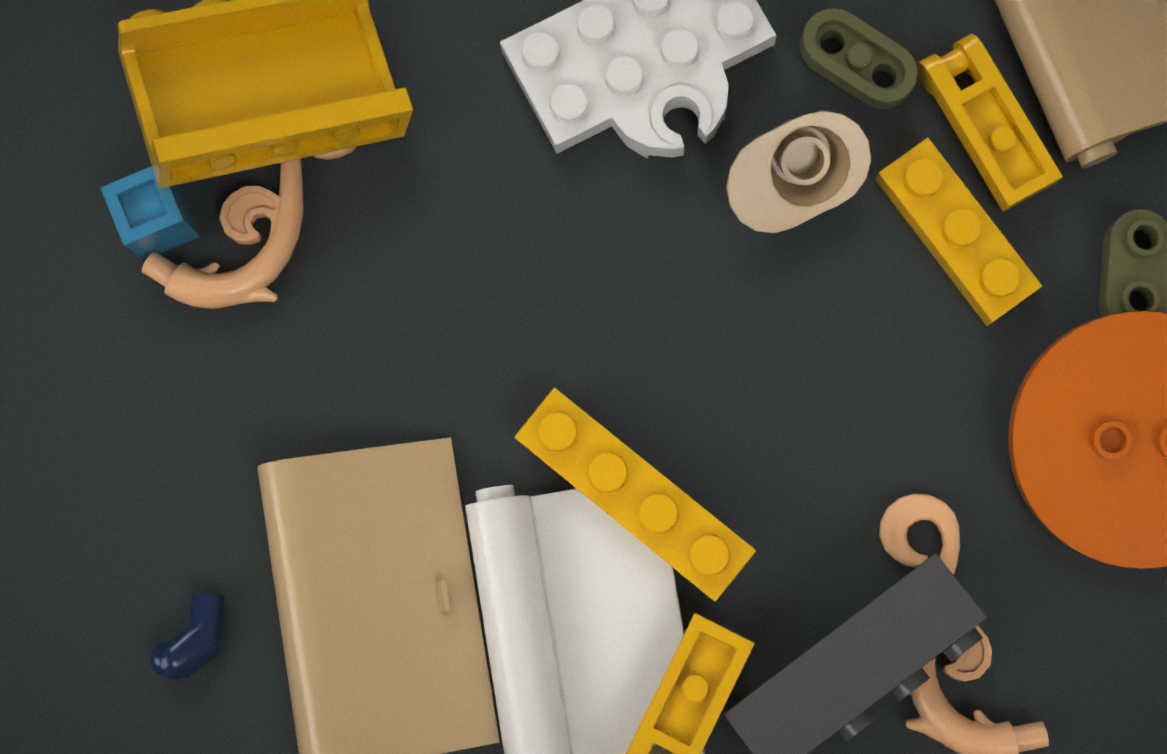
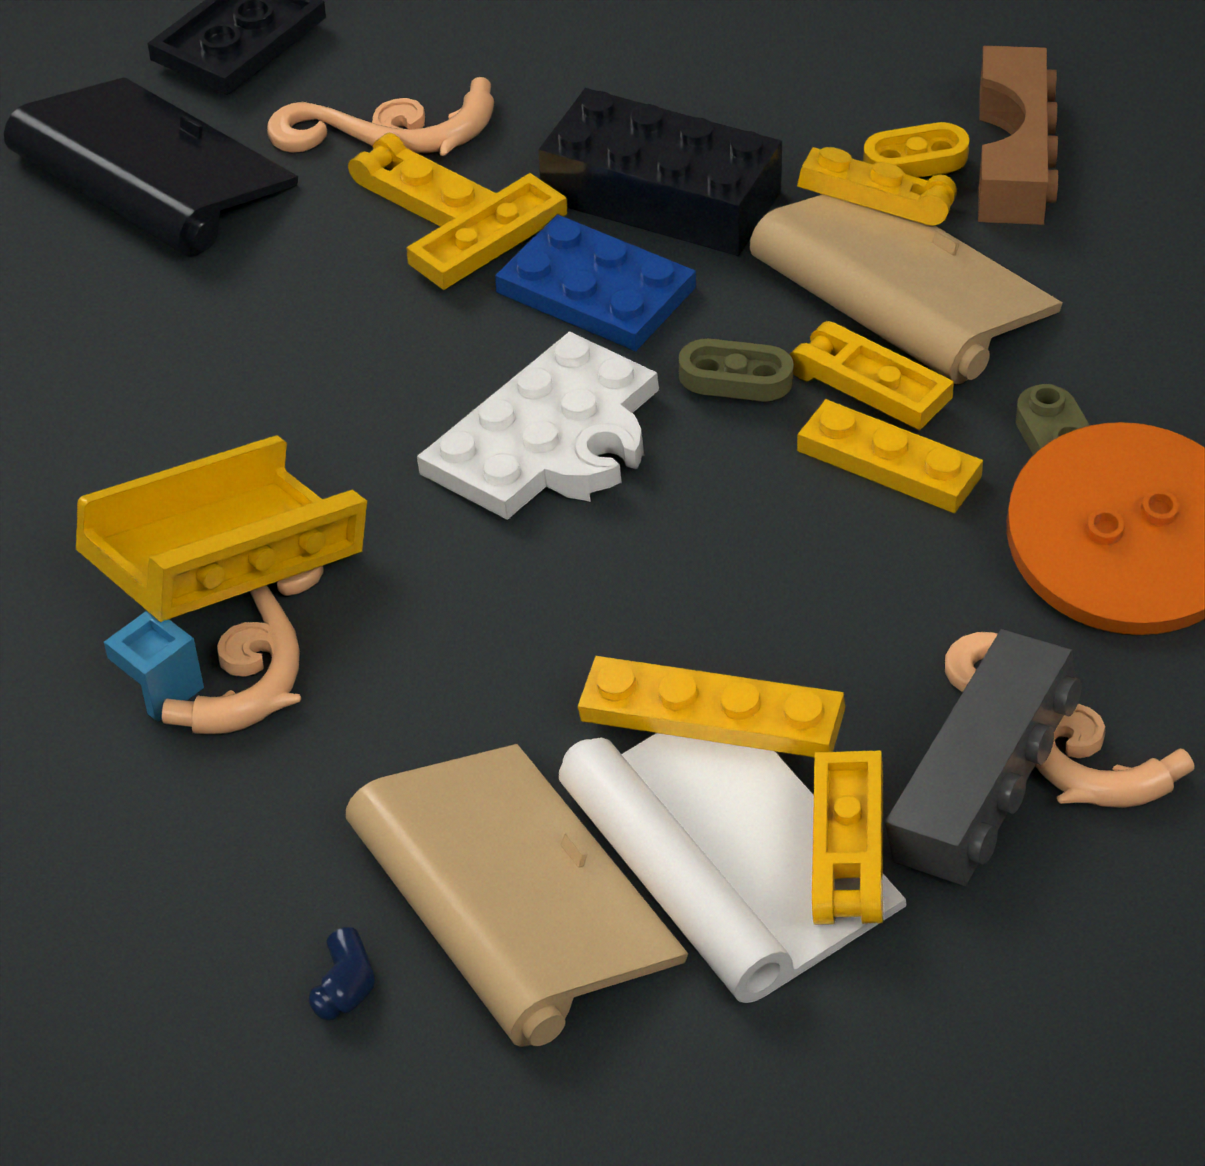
camera: 20 degrees left, 35 degrees down
(798, 171) = (728, 439): tan piece -> none

